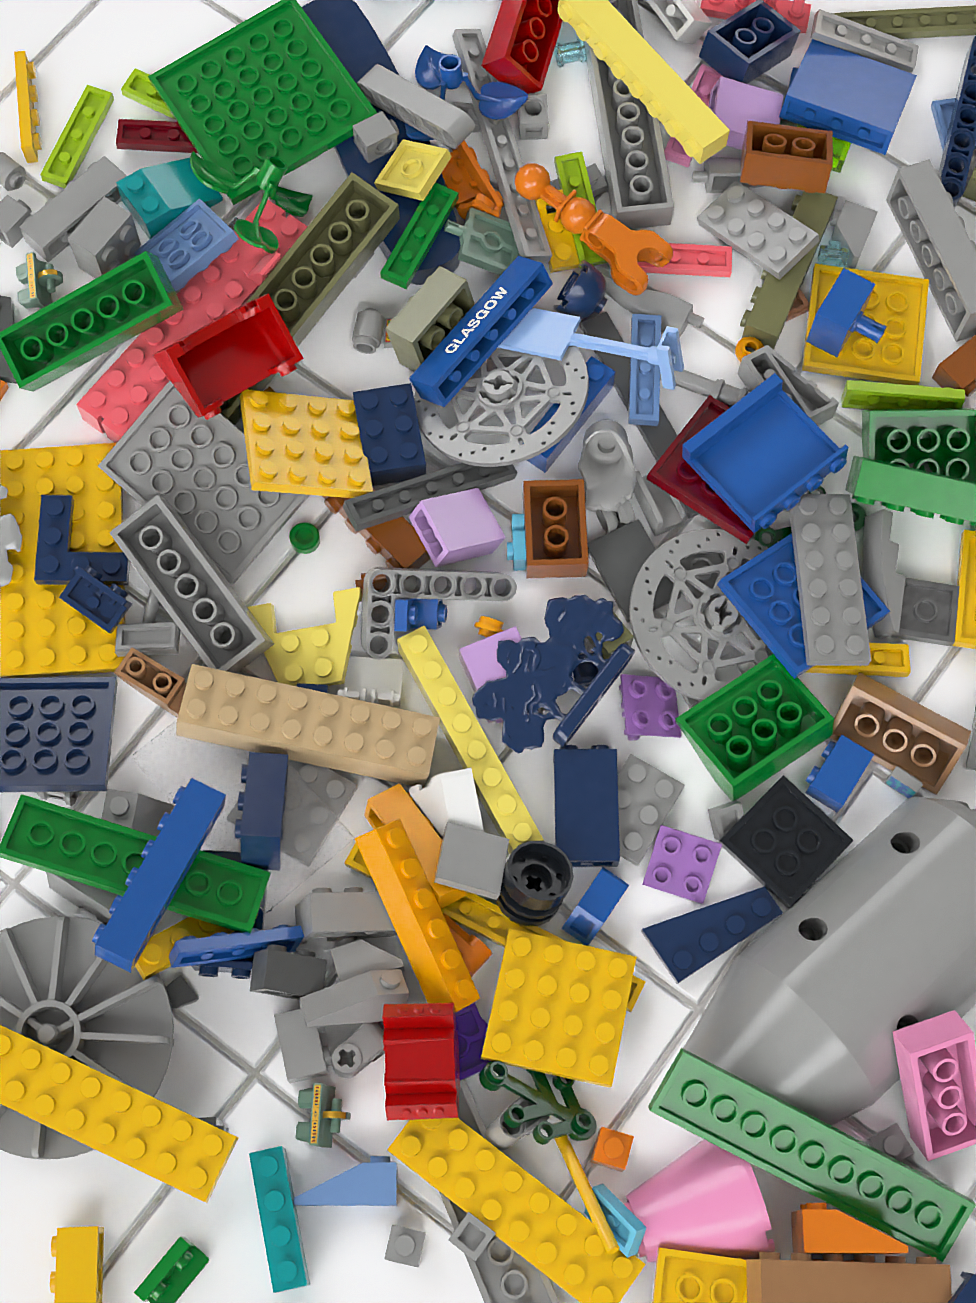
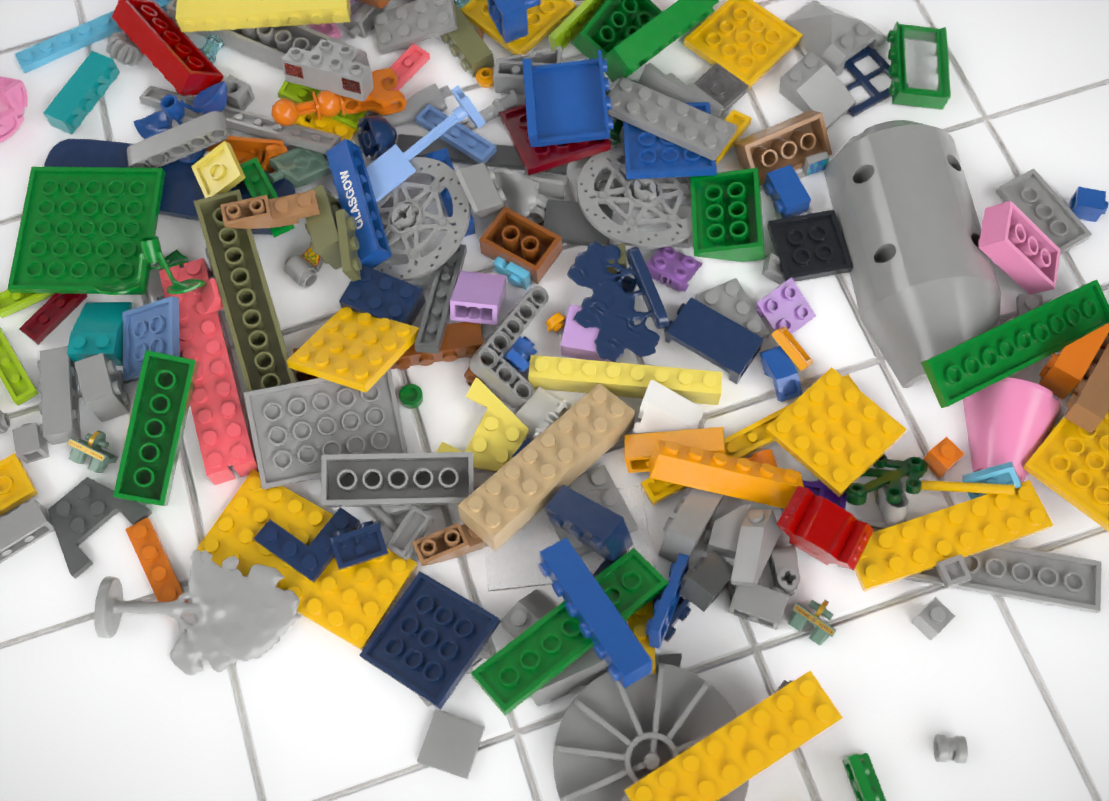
camera: 50 degrees left, 5 degrees down
(229, 356) = (259, 348): red windscreen -> none
(279, 1219) = (870, 688): teal brick -> none
(360, 1186) = (875, 624): medium blue slope -> none
(375, 136) = (175, 180): light grey brick -> none
(393, 252) = (270, 213): none -> medium nougat slope
(415, 355) = (348, 245): none -> olive plate
(471, 860) = (711, 418): light grey tile -> none
(534, 883) = (747, 394): black wheel -> none
(578, 441) = (481, 189): none -> light grey slope
(613, 187) = (329, 68): none -> light grey piece
(633, 900) = (792, 348): none -> light orange tile
(704, 934) = (837, 325): dark blue wing -> none

